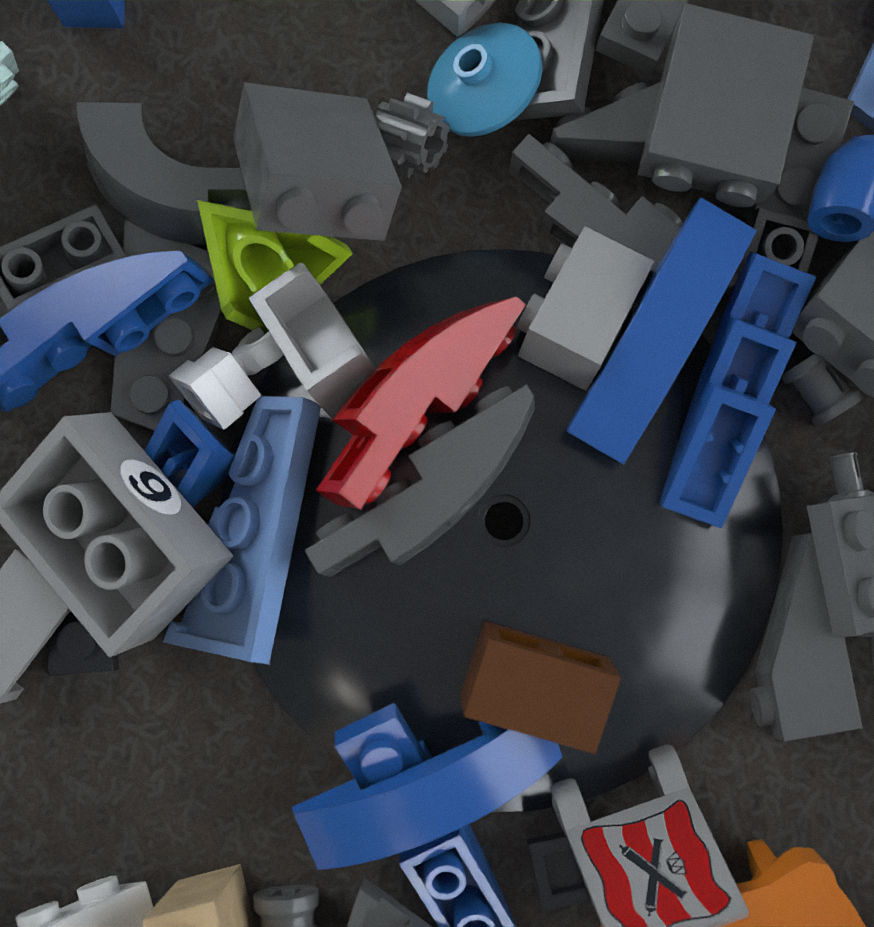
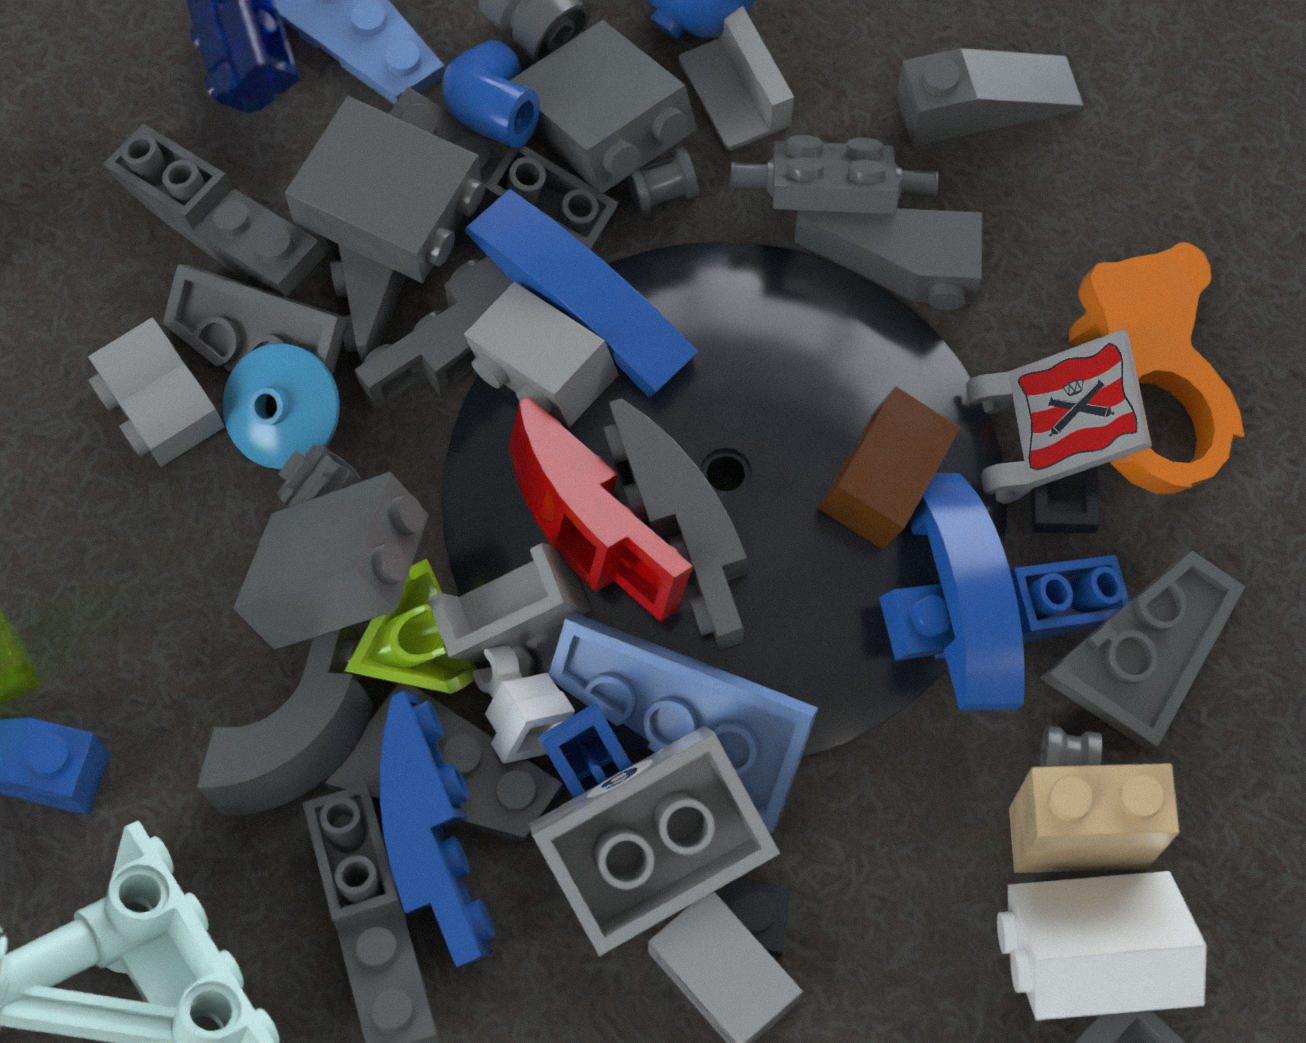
camera: 75 degrees left, 15 degrees down
(735, 390) = (658, 251): blue slope -> none

